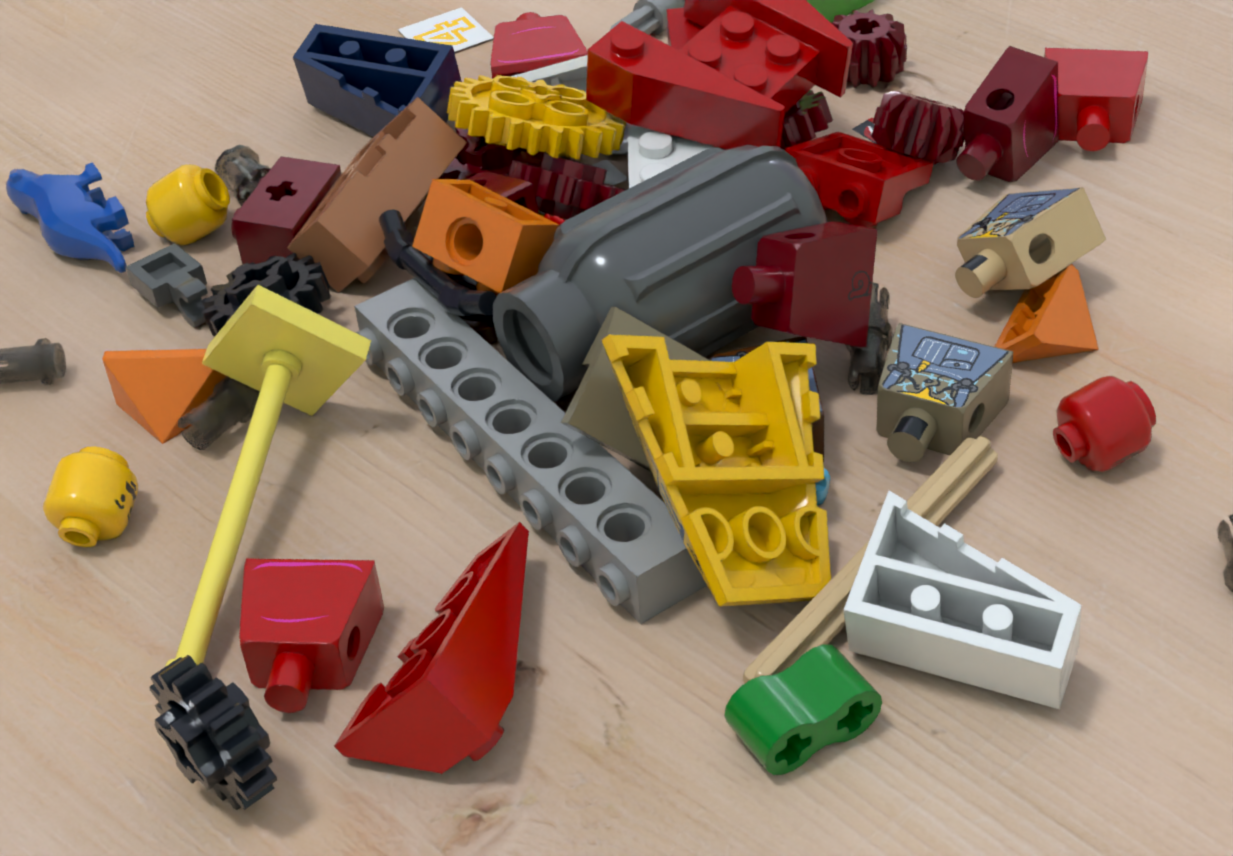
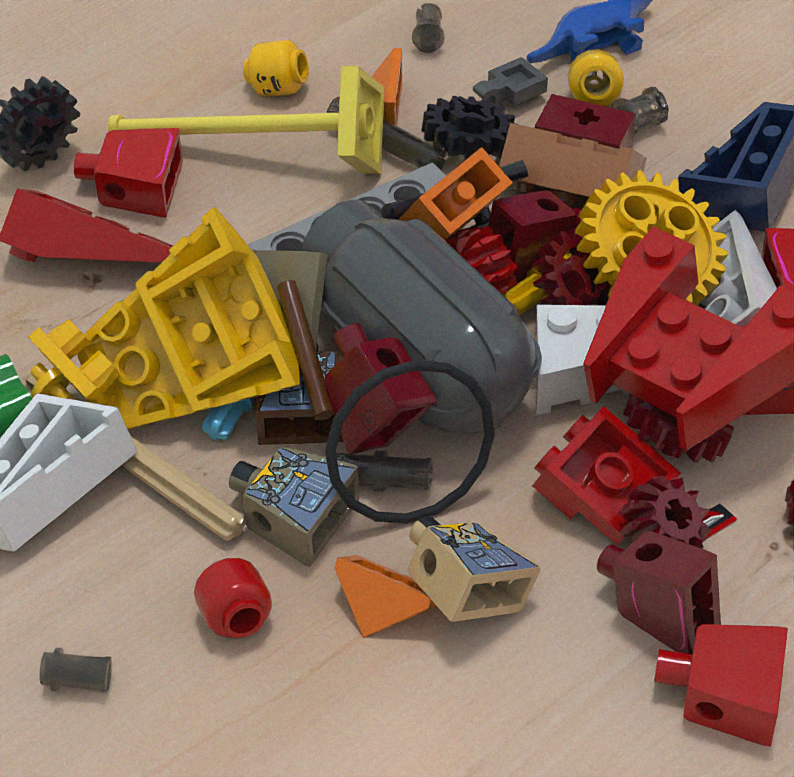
camera: 90 degrees right, 5 degrees up
(734, 348) = (305, 350): none -> reddish brown bar
(785, 596) = (59, 348): none -> yellow hips
(836, 173) = (371, 383): none -> black piece

